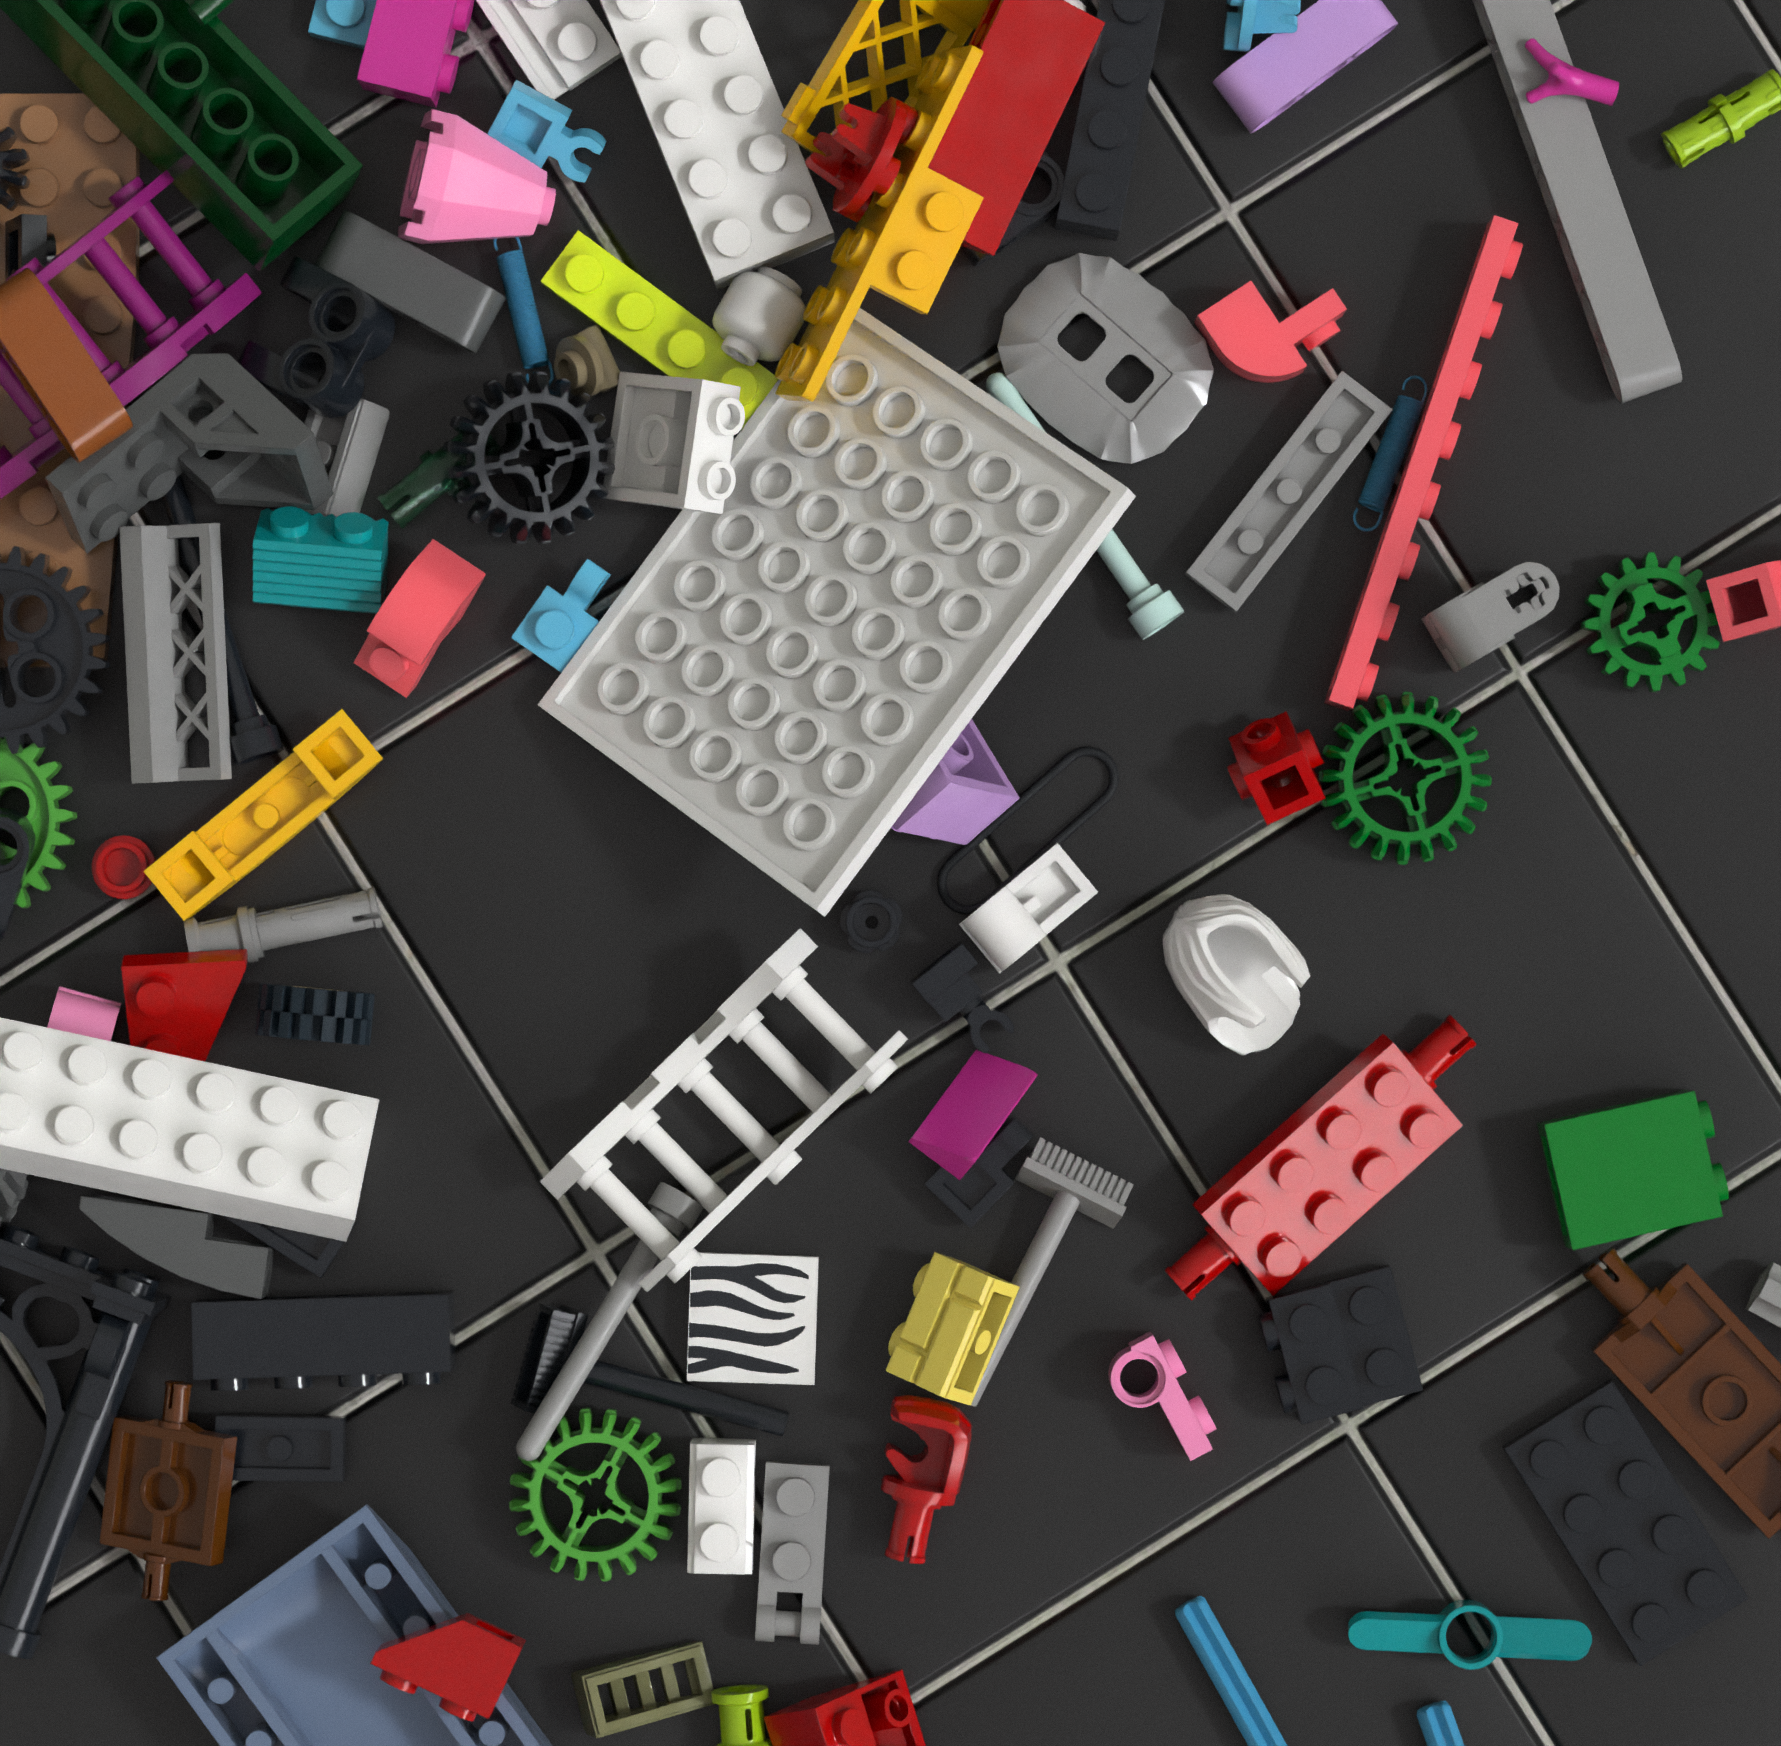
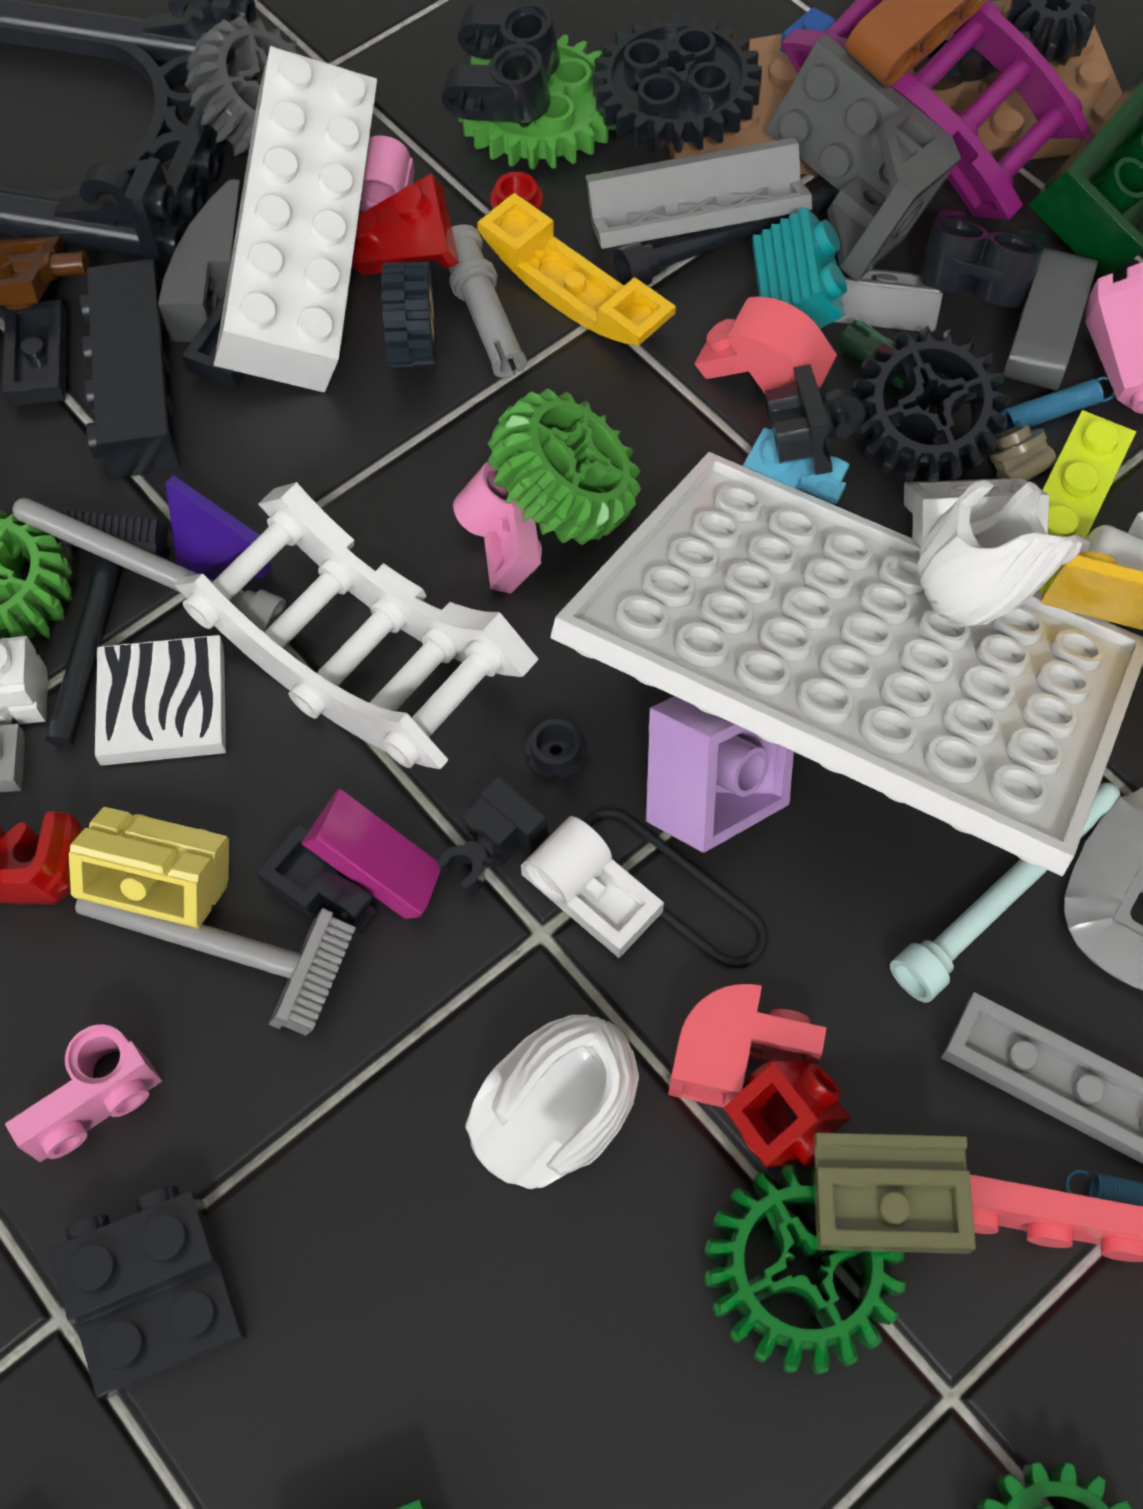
camera: 85 degrees right, 25 degrees down
(508, 597) = (805, 419): none -> black hips
(545, 851) = (563, 466): none -> bright green gear
(573, 1263) = (204, 533): none -> dark purple slope
(605, 937) = (509, 541): none -> bright pink plate
(781, 464) = (992, 564): none -> white hair
(1191, 811) = (728, 1031): none -> coral brick
(1326, 1163) = (357, 1244): plate -> none
(1367, 697) = (892, 1193): none -> olive plate
(1484, 618) = (1008, 1328): light grey piece -> none

